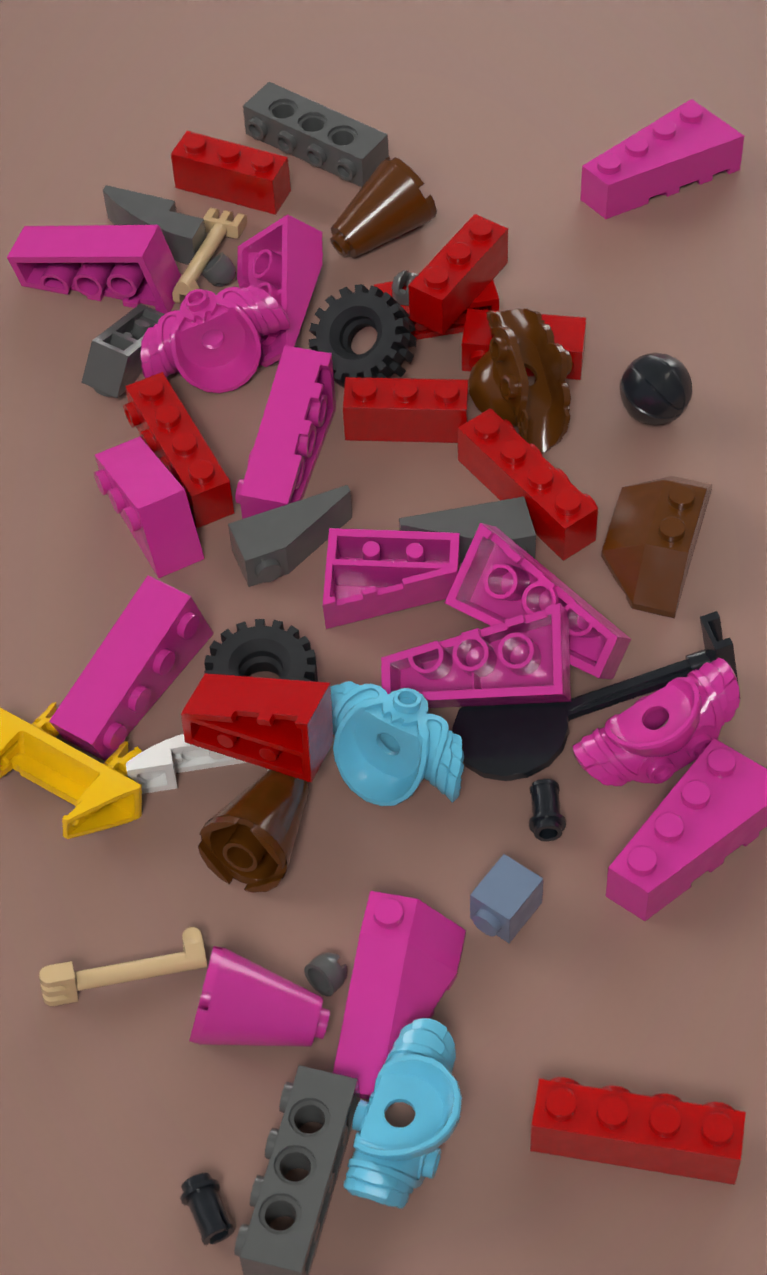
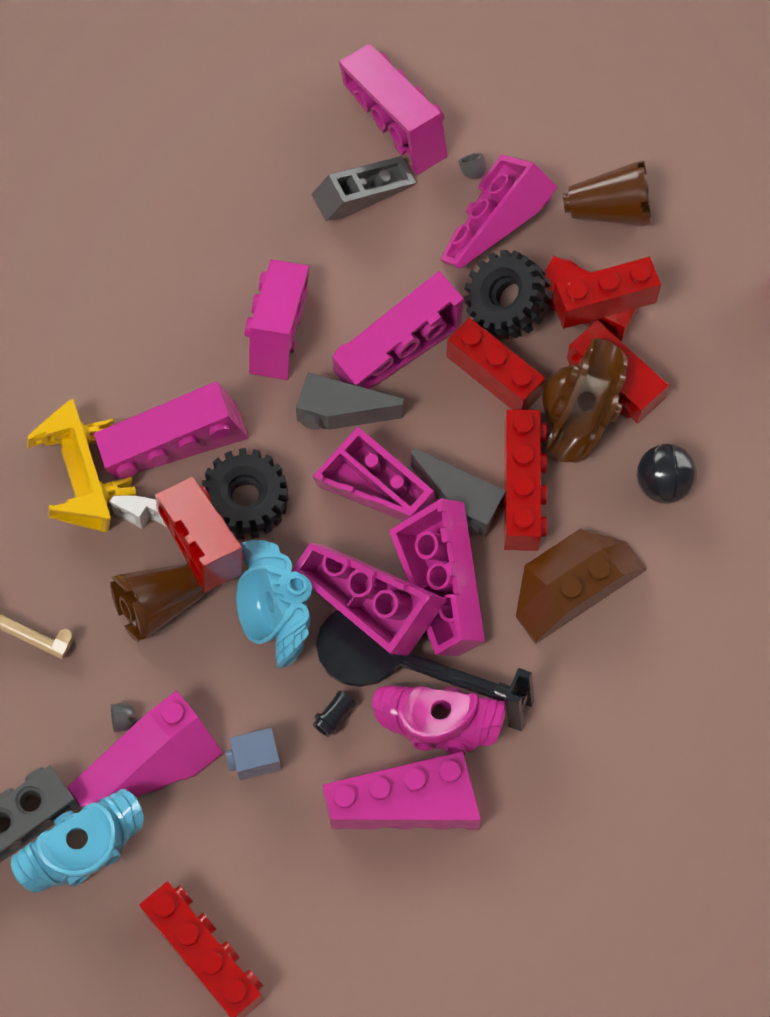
camera: 35 degrees right, 15 degrees up
(180, 447) = (329, 290): red brick -> none
(182, 232) = (462, 101): dark grey slope -> none
(213, 337) = (411, 222): dark pink piece -> none
(216, 230) = (505, 128): tan hinge -> none
(231, 172) = (544, 90): red brick -> none
(254, 1006) = (59, 707): dark pink cone -> none
(315, 133) = (620, 55): dark grey brick -> none
(402, 279) = (565, 268): dark grey hinge -> none

